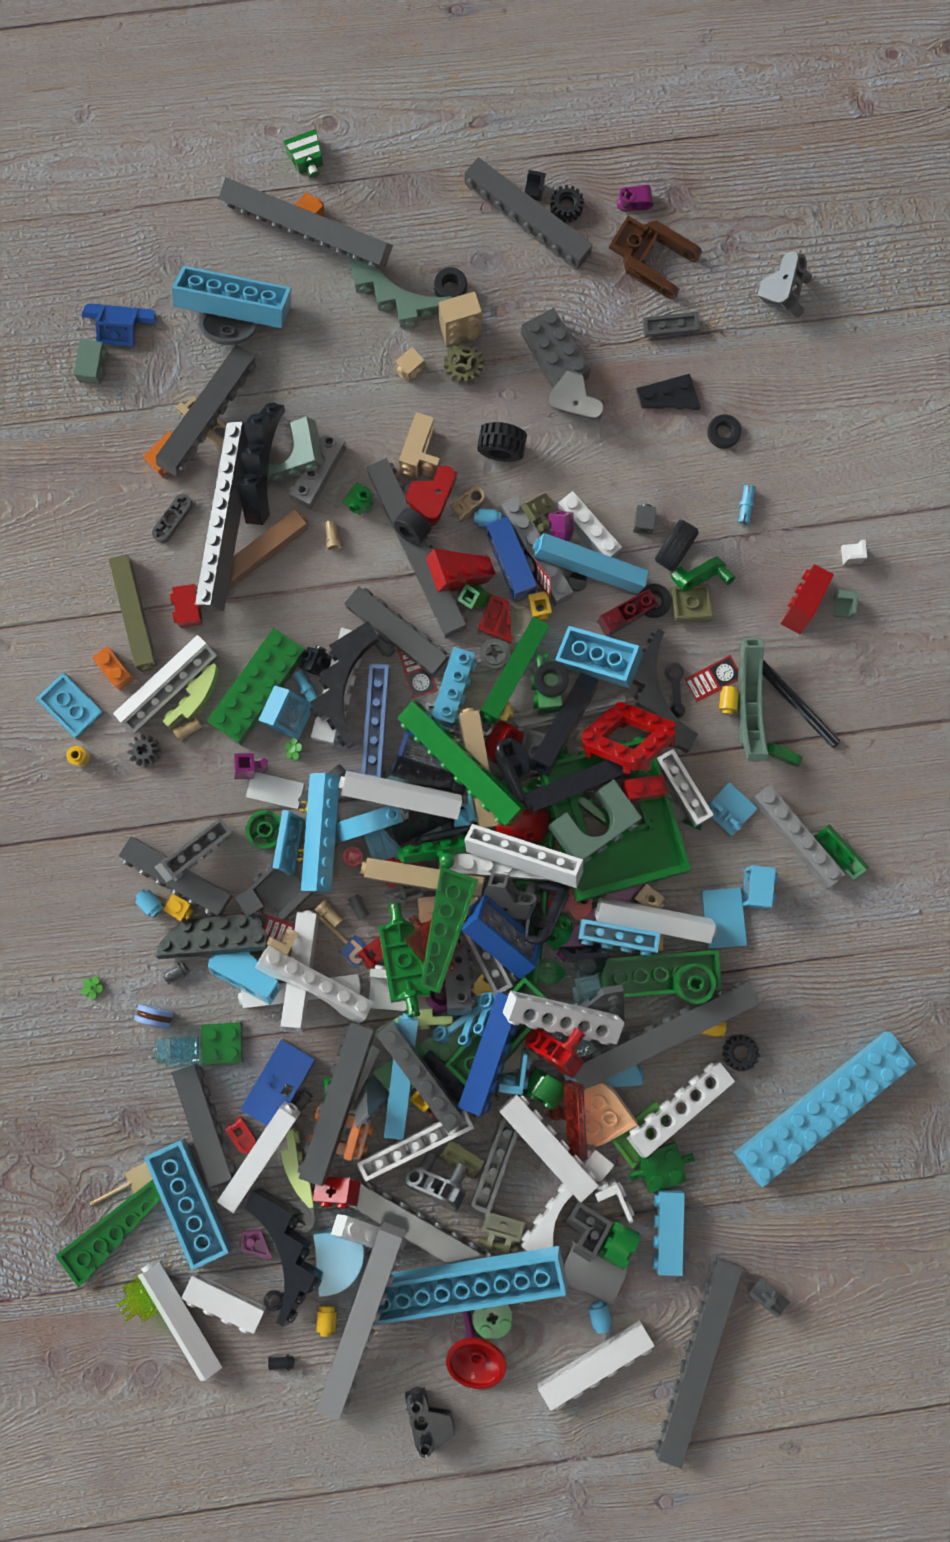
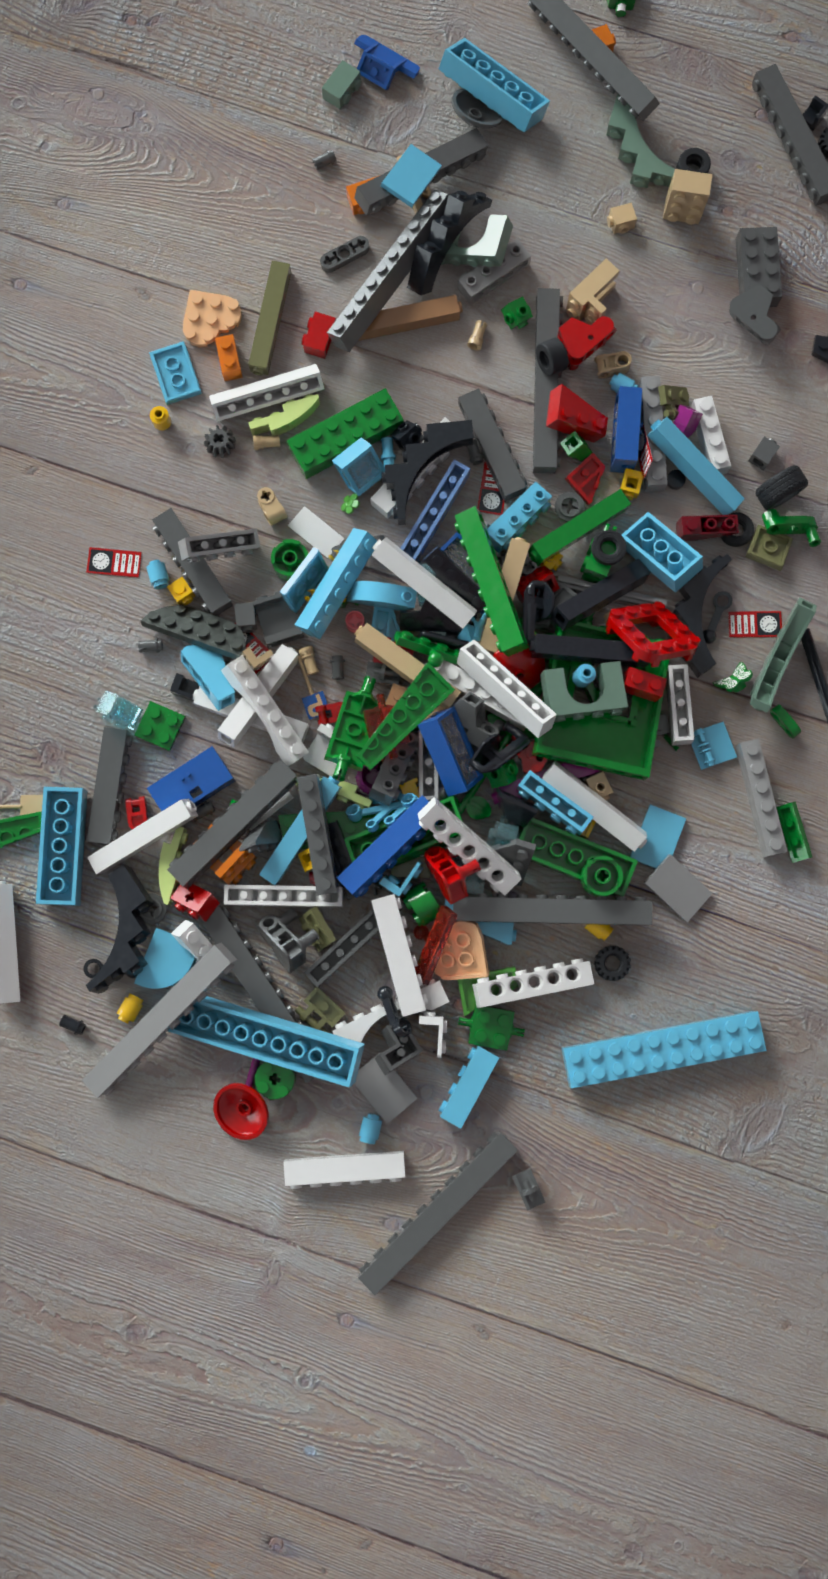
camera: 30 degrees right, 0 degrees up
(74, 638) = (209, 316): none -> light nougat plate
(92, 987) = (73, 623): bright green plant -> none
(101, 911) = (113, 562): none -> sticker
(109, 438) = (324, 159): none -> dark grey pin
(154, 1016) = (113, 671): light blue head -> none
(199, 421) = (411, 175): none -> medium azure tile
(223, 1303) = (49, 948): white brick -> none
(224, 790) = (272, 508): none -> tan piece
(226, 996) = (183, 687): none -> black panel
(246, 766) = (300, 497): magenta brick -> none
(255, 1244) = (101, 911): magenta piece -> none
(435, 1427) = (181, 1147): black piece -> none
(468, 357) = (672, 238): olive gear -> none
(502, 441) = (670, 322): black tyre -> none
(583, 811) = (583, 675): none -> medium azure brick
(583, 1211) = (401, 1025): none -> black piece
(619, 1245) = (418, 1073): green brick -> none
(723, 739) = (737, 680): none -> green animal
(729, 700) = (759, 649): yellow brick -> none
(759, 887) = (703, 824): medium azure piece -> none
(764, 954) = (678, 888): none -> light grey tile

